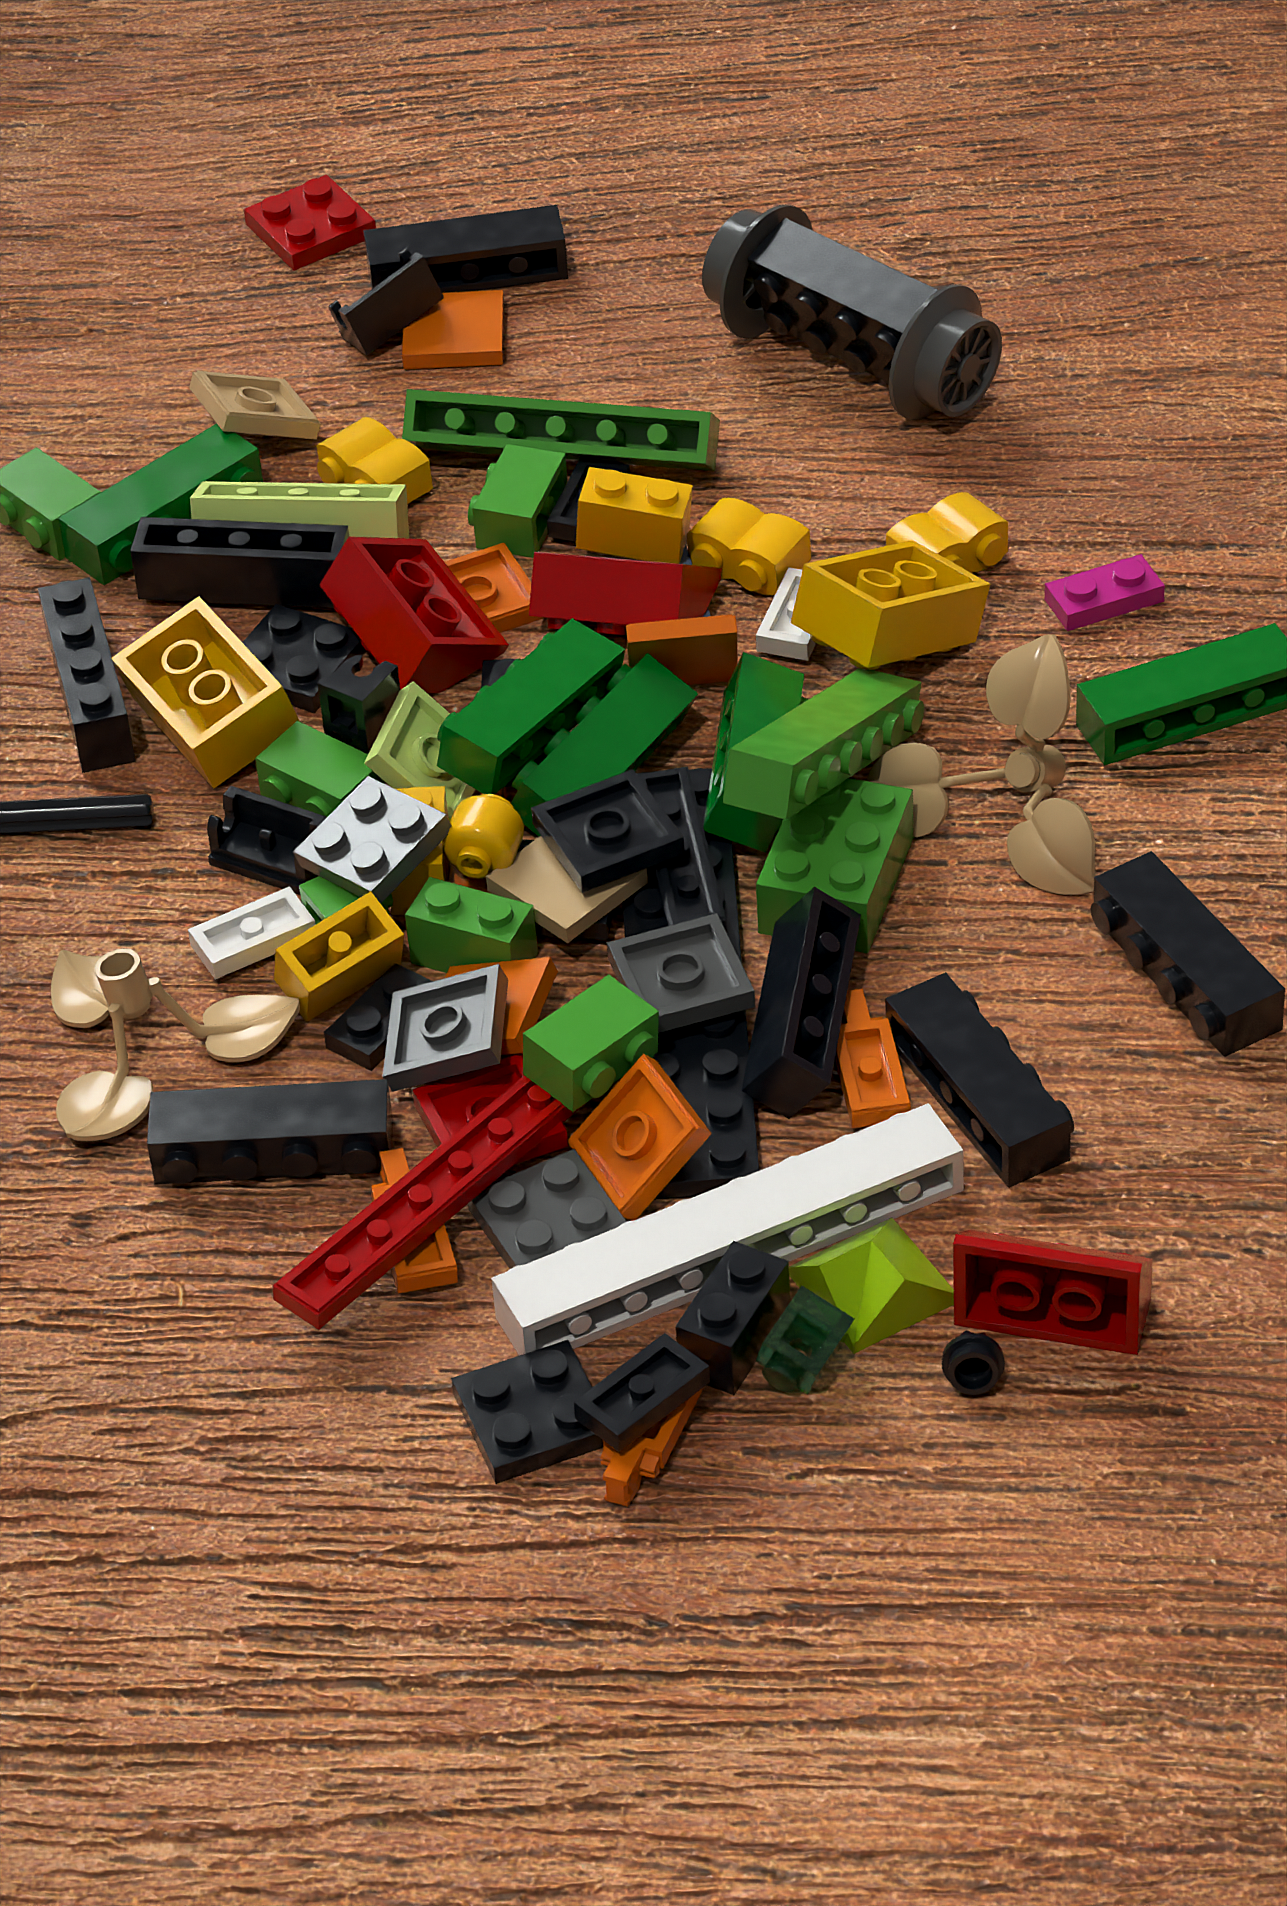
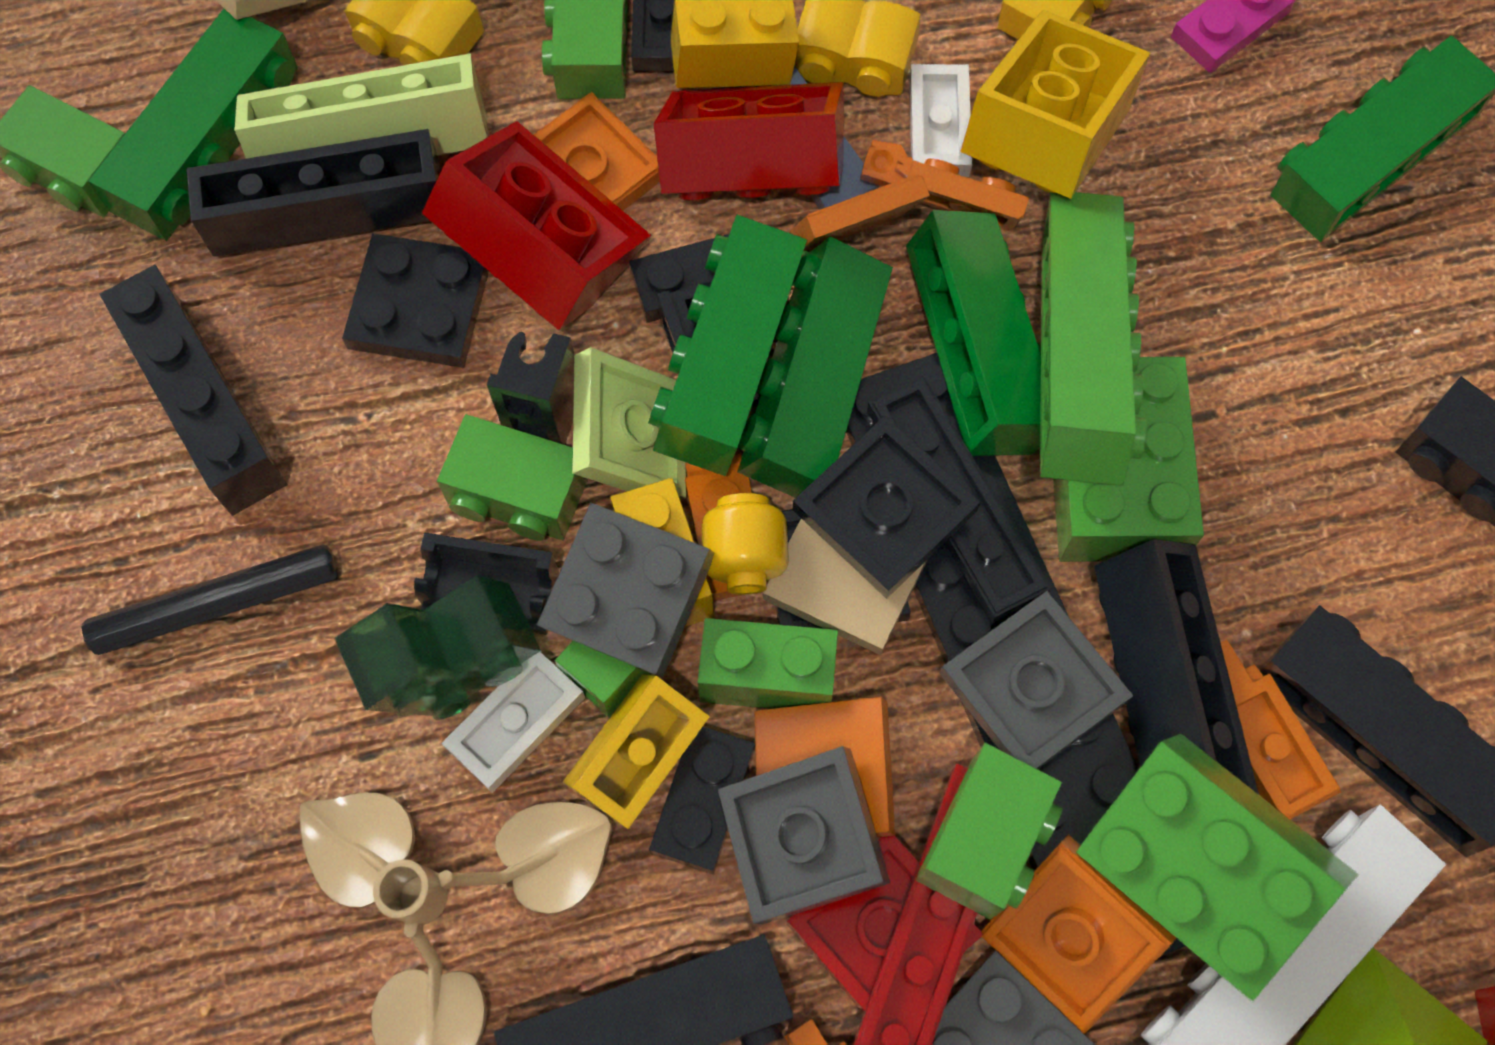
camera: 20 degrees left, 25 degrees up
(205, 691) = (344, 396): yellow brick -> none
(212, 866) = (439, 655): none -> clear green brick
(754, 1078) = (1216, 864): none -> bright green brick
(775, 647) = (947, 190): none -> orange hinge
(1057, 840) = (1292, 224): tan plant -> none

